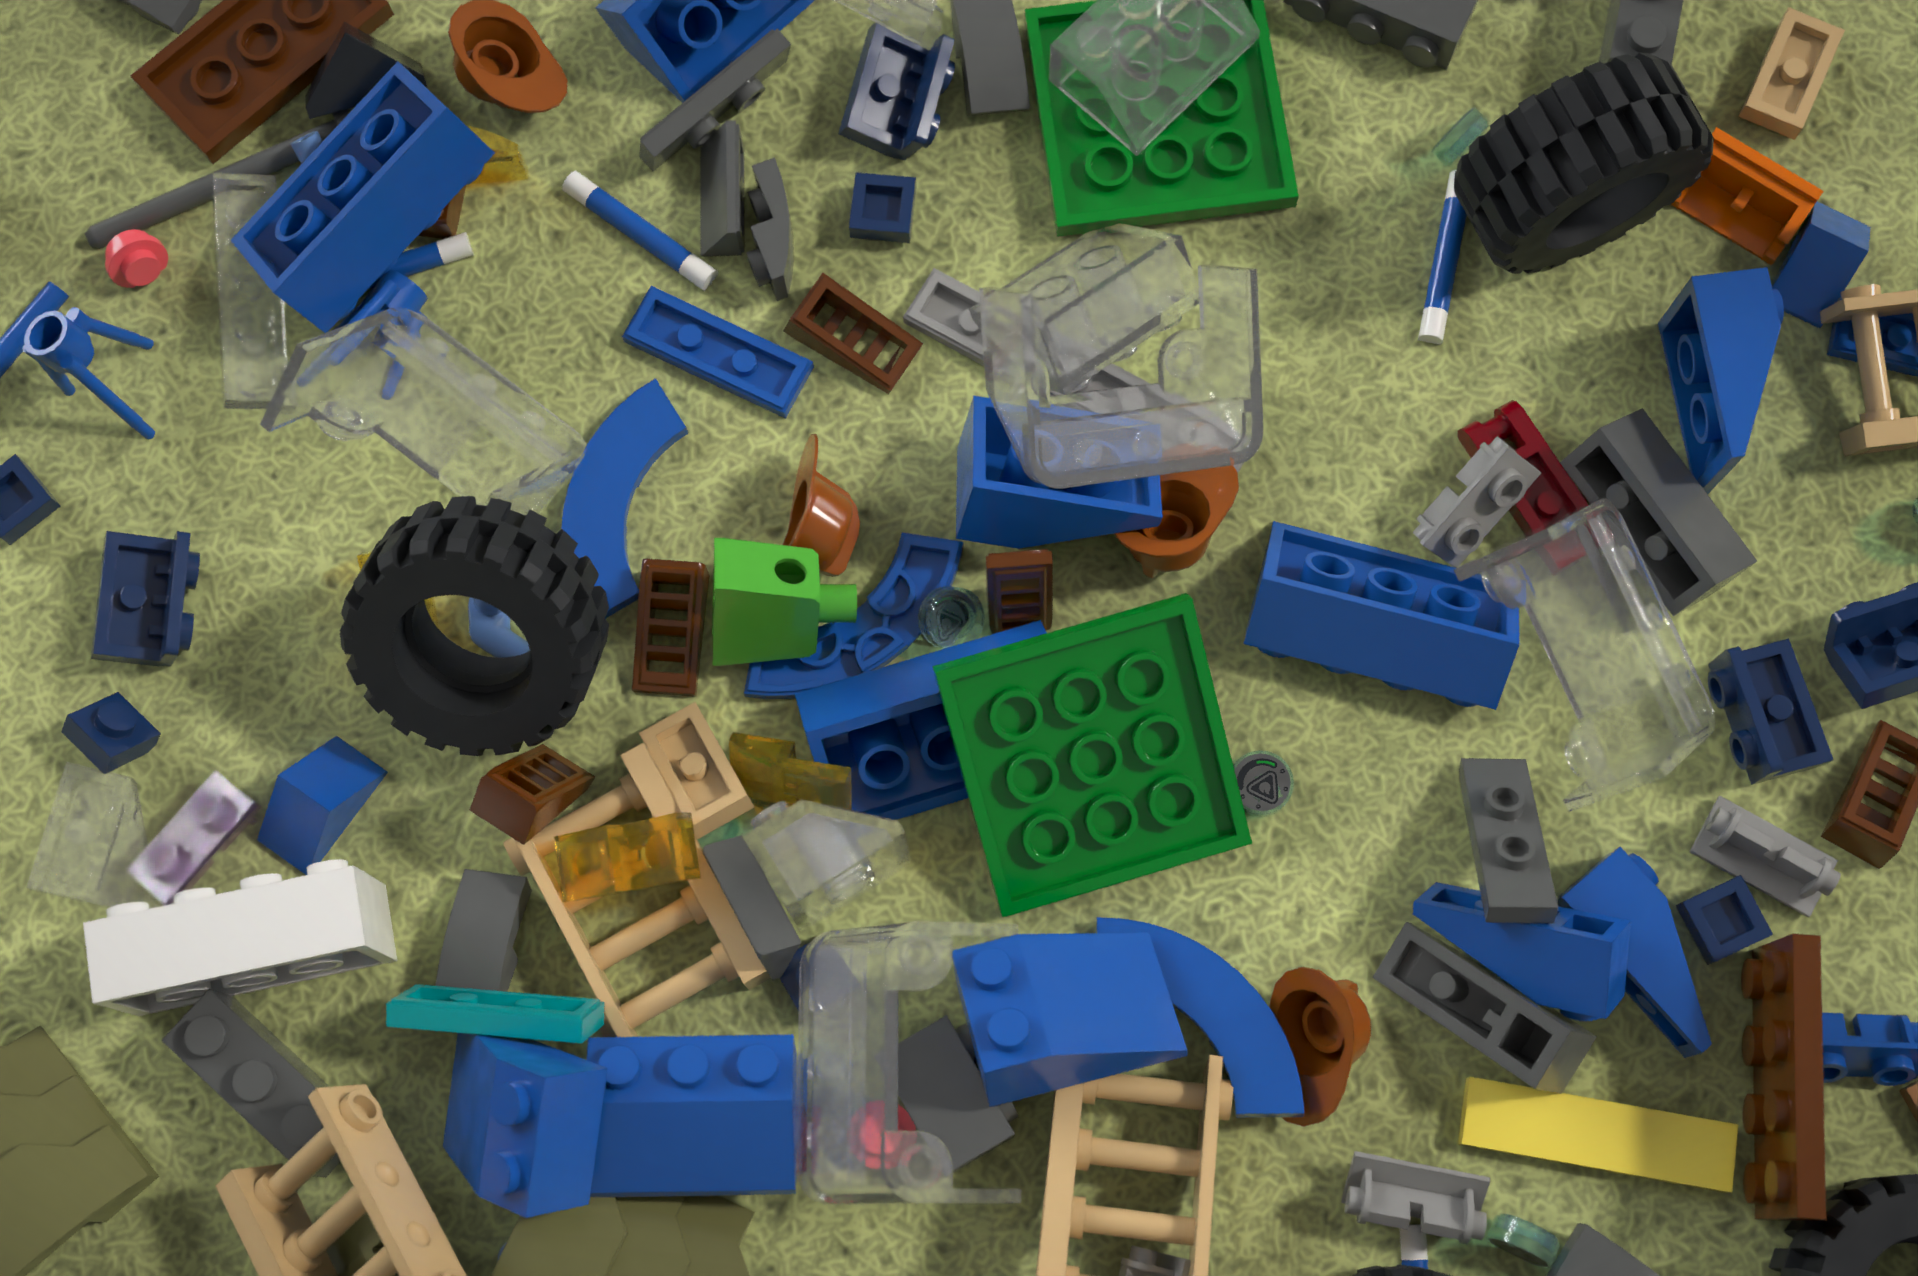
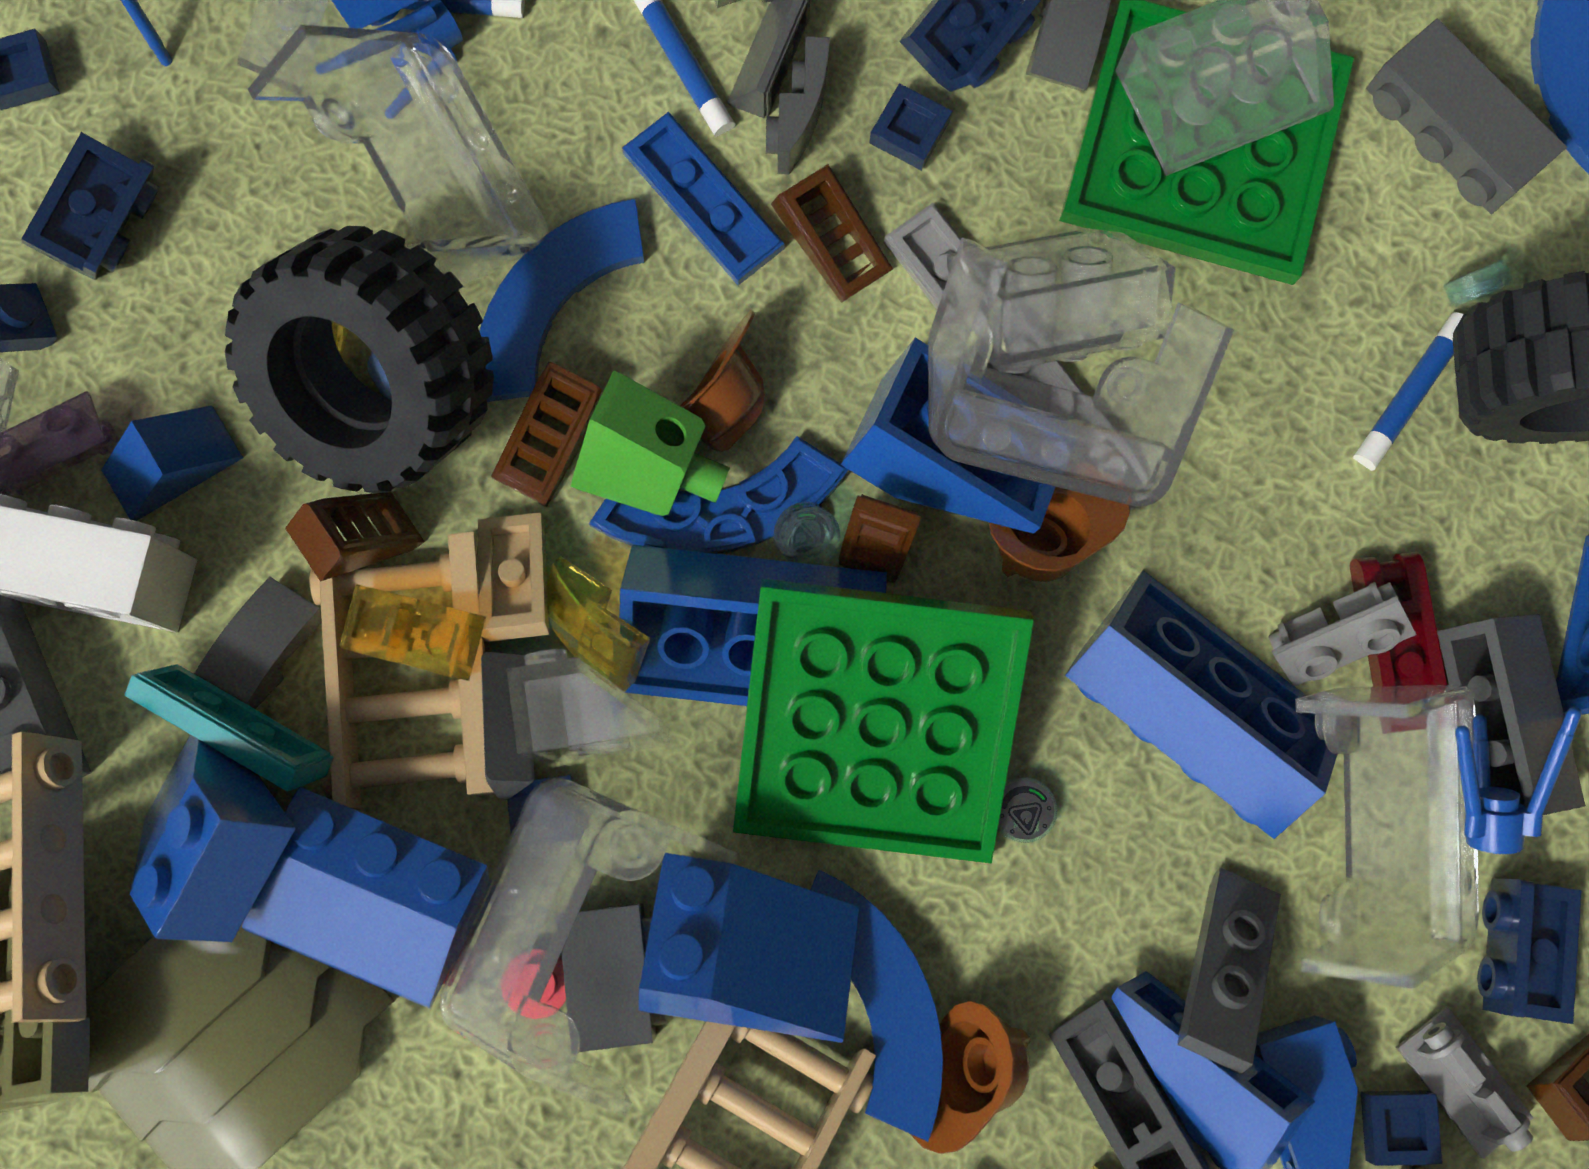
camera: 15 degrees right, 5 degrees up
(1676, 600) = (1494, 815): none -> blue plant

